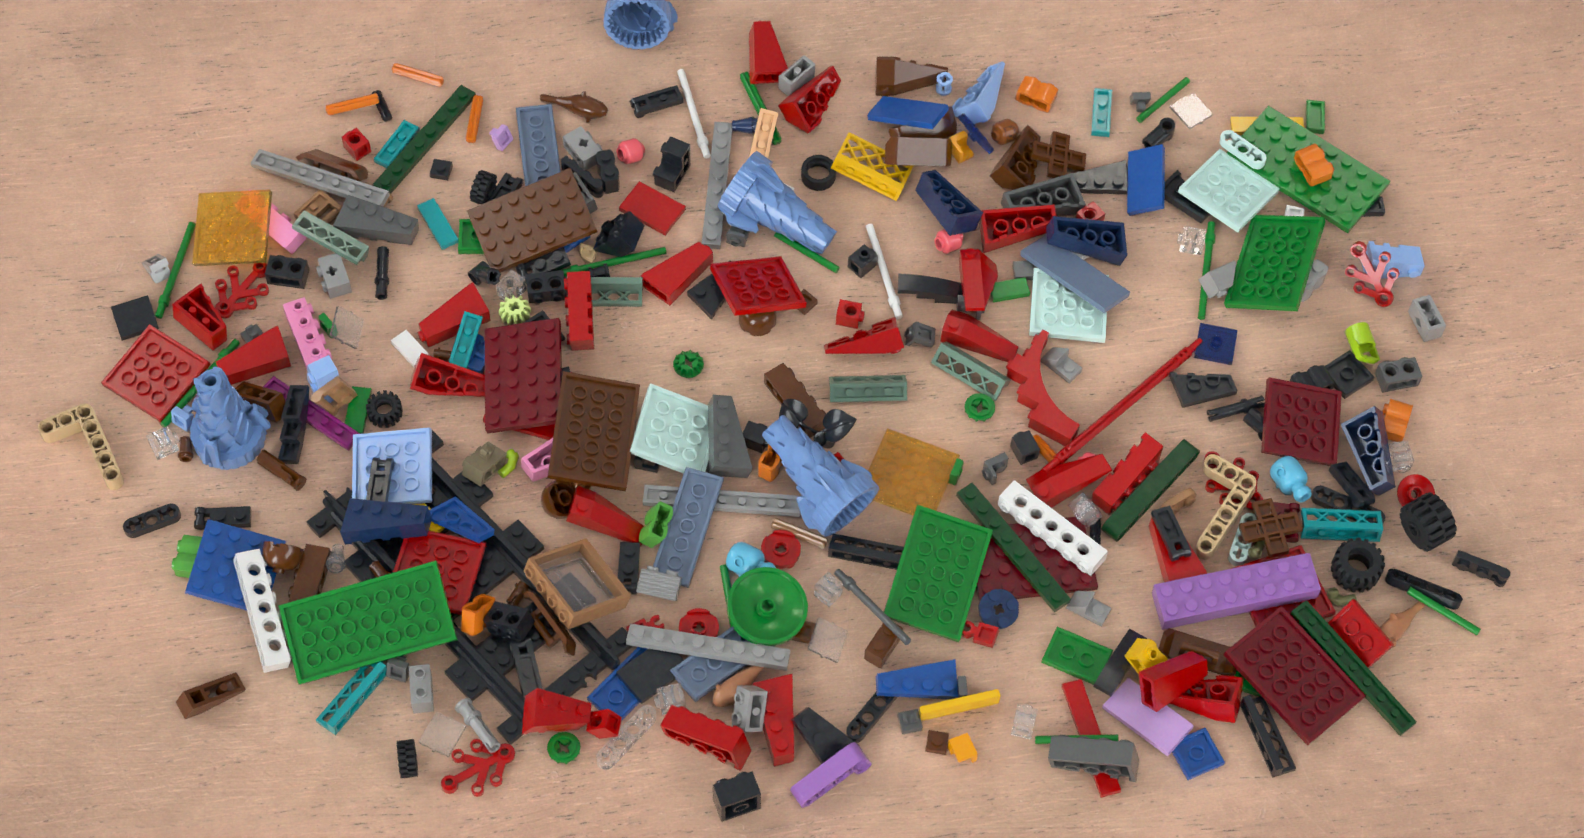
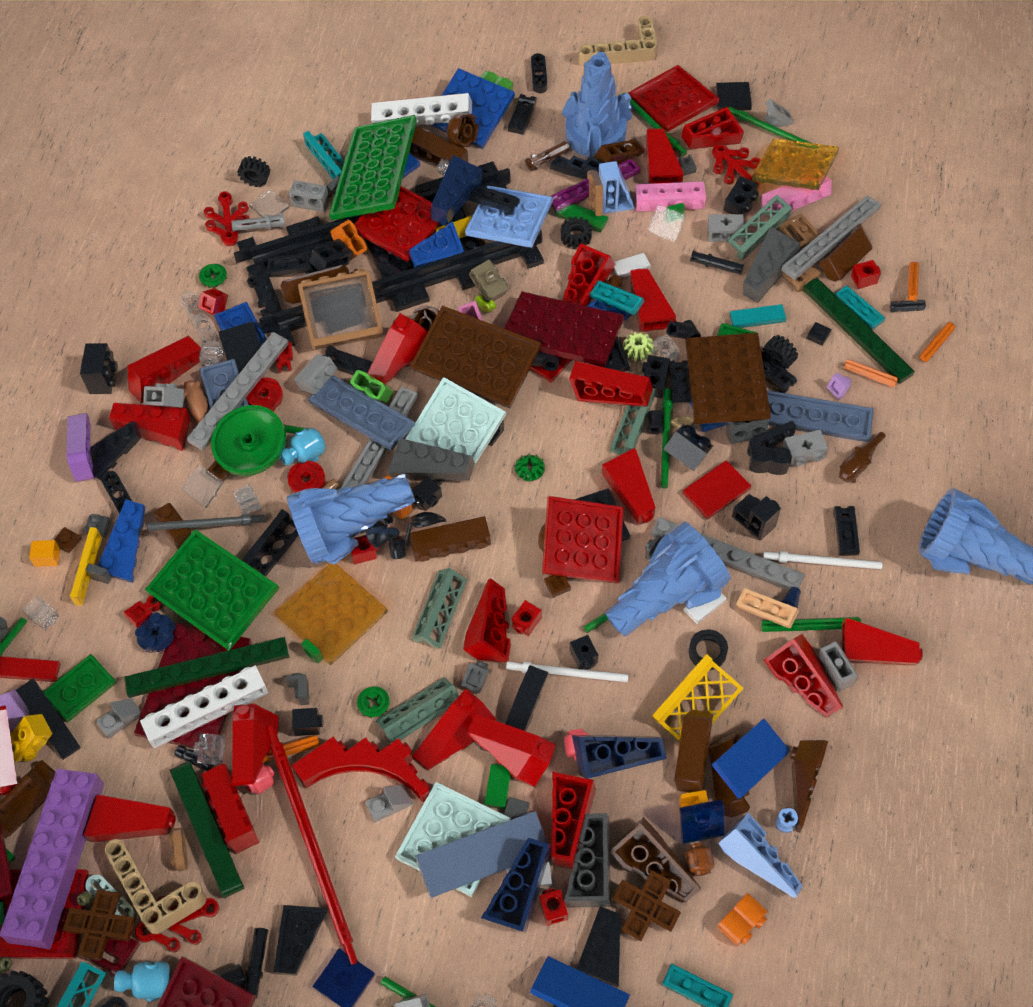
camera: 115 degrees right, 0 degrees up
(208, 695) = (371, 74): reddish brown slope -> none
(377, 569) = (417, 189): reddish brown pin -> none
(553, 712) = (233, 264): red wedge -> none
(630, 151) = (788, 487): coral head -> none
(1171, 533) = (139, 814): black plate -> none

